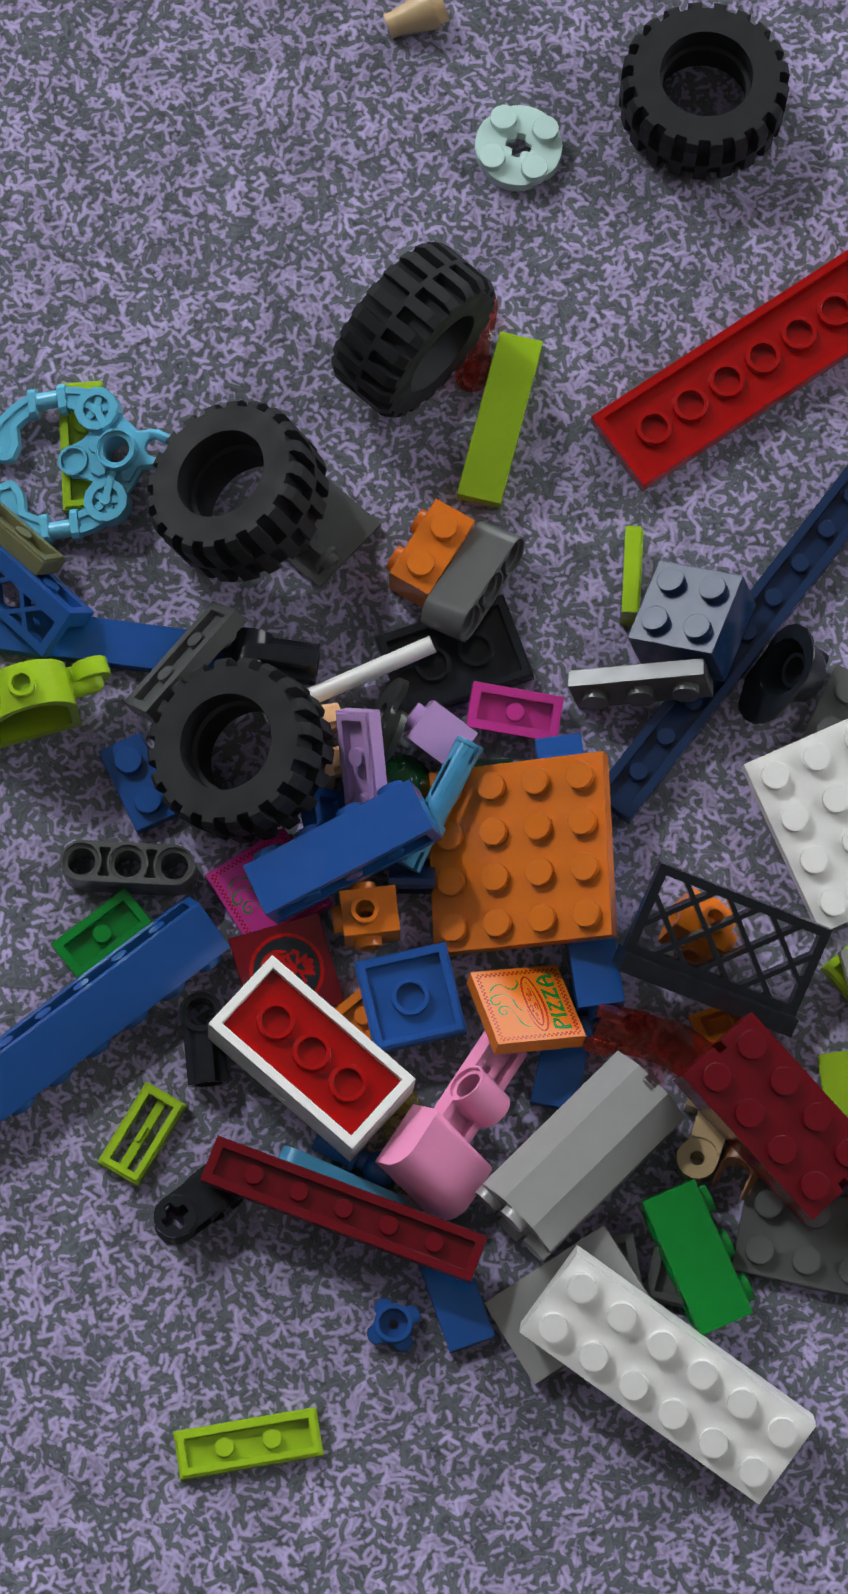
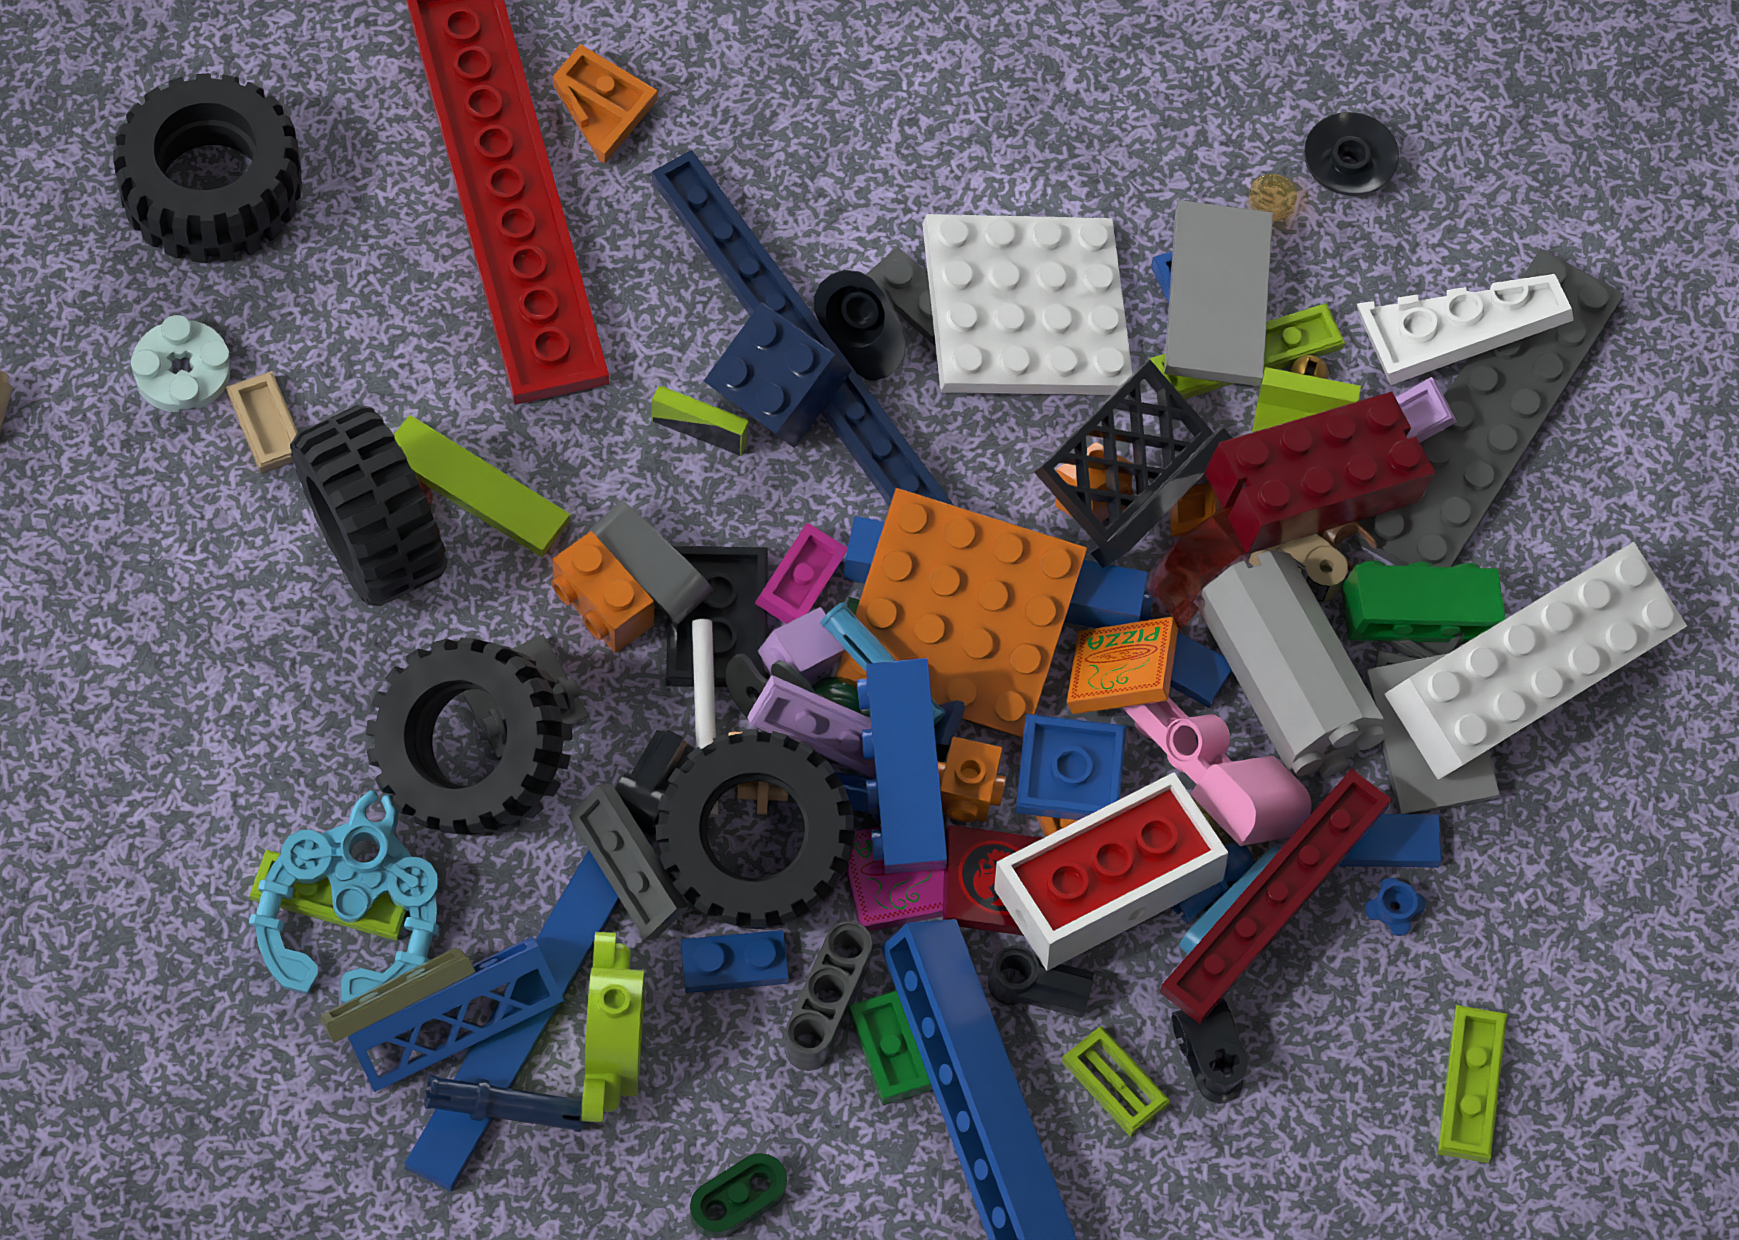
camera: 75 degrees left, 10 degrees down
(495, 231) = (264, 420): none -> tan tile
(640, 684) = (824, 445): dark grey plate -> none

